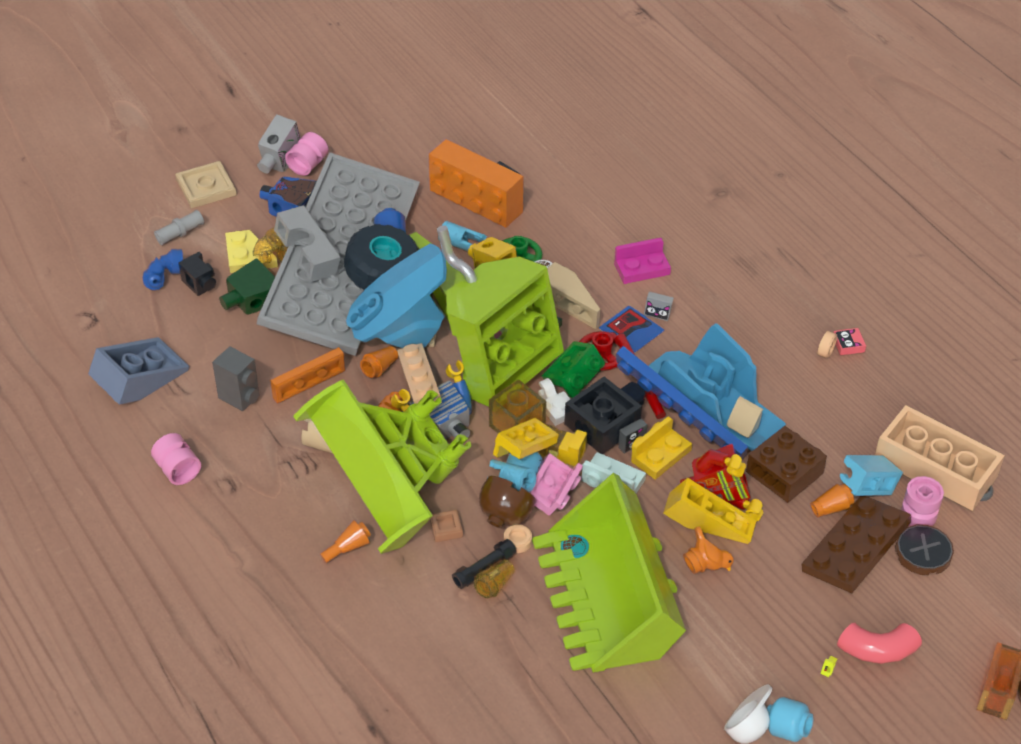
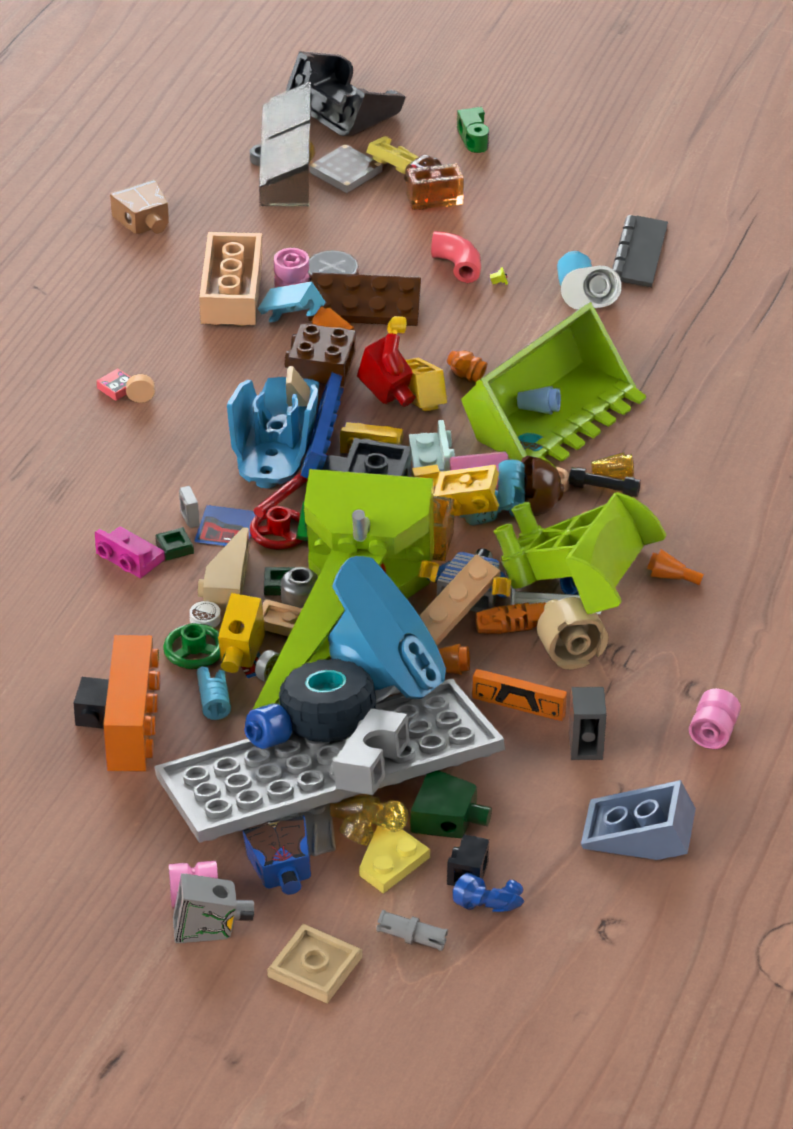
camera: 125 degrees left, 5 degrees down
(609, 569) = (540, 400): none -> light blue cone
(632, 291) = (174, 543): none -> dark green tile

